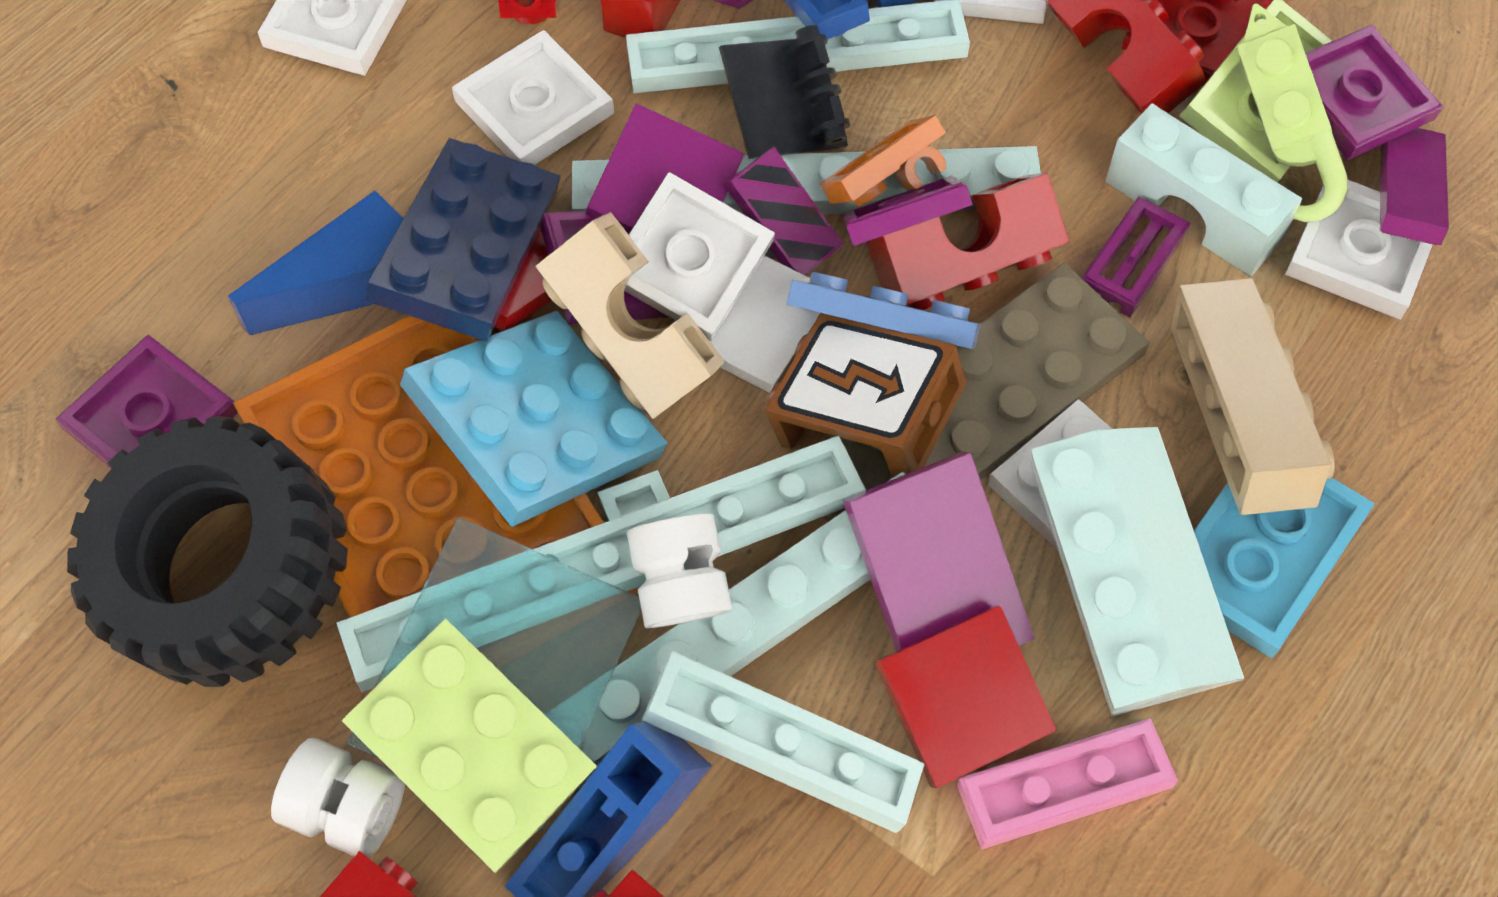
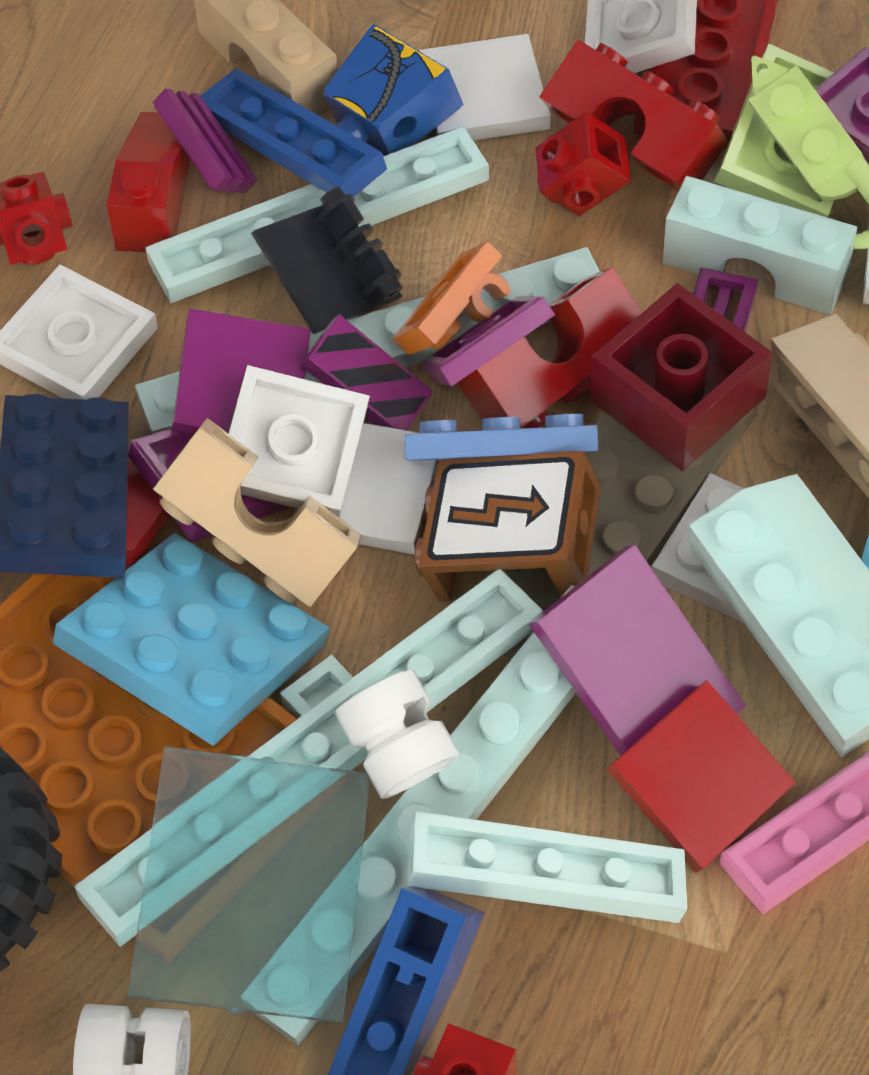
camera: 15 degrees left, 5 degrees down
(470, 745) = (250, 958): yellowish green plate -> none
(1058, 65) = (582, 164): none -> red brick
(1076, 297) = (680, 376): none -> dark red brick

